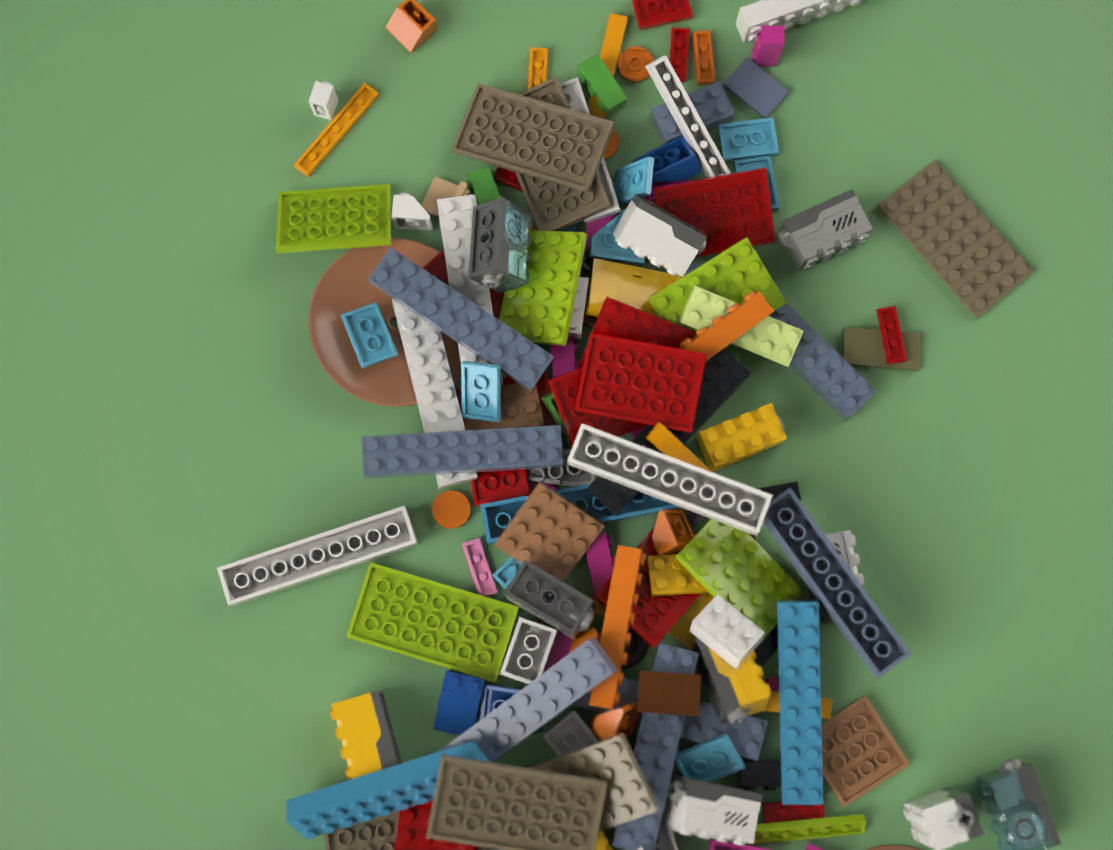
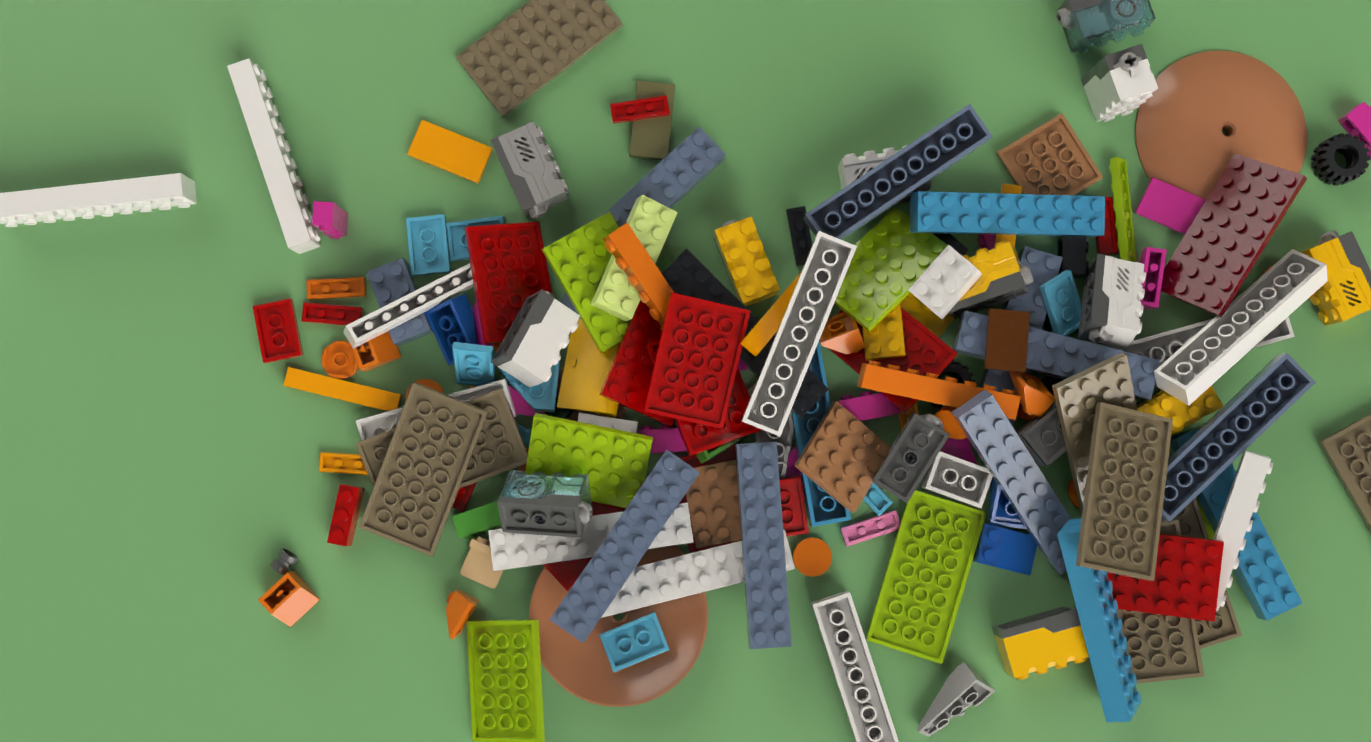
camera: 90 degrees left, 5 degrees up
(317, 654) = (960, 691): none -> light grey wedge
(323, 100) = (372, 693): white brick -> none
(336, 130) = (403, 679): light orange tile -> none
(398, 175) = (459, 611): none -> orange slope
(409, 213) = (501, 601): white slope -> none
(446, 19) = (284, 561): none -> dark grey wheel
(481, 391) = (699, 525): medium azure tile -> none
(489, 71) = (345, 515): none -> red brick
(602, 85) = (365, 395): bright green brick -> none
(643, 93) = (376, 352): none -> orange slope
(756, 88) = (372, 235): sand blue tile -> none
(840, 157) = (450, 151): none -> light orange tile

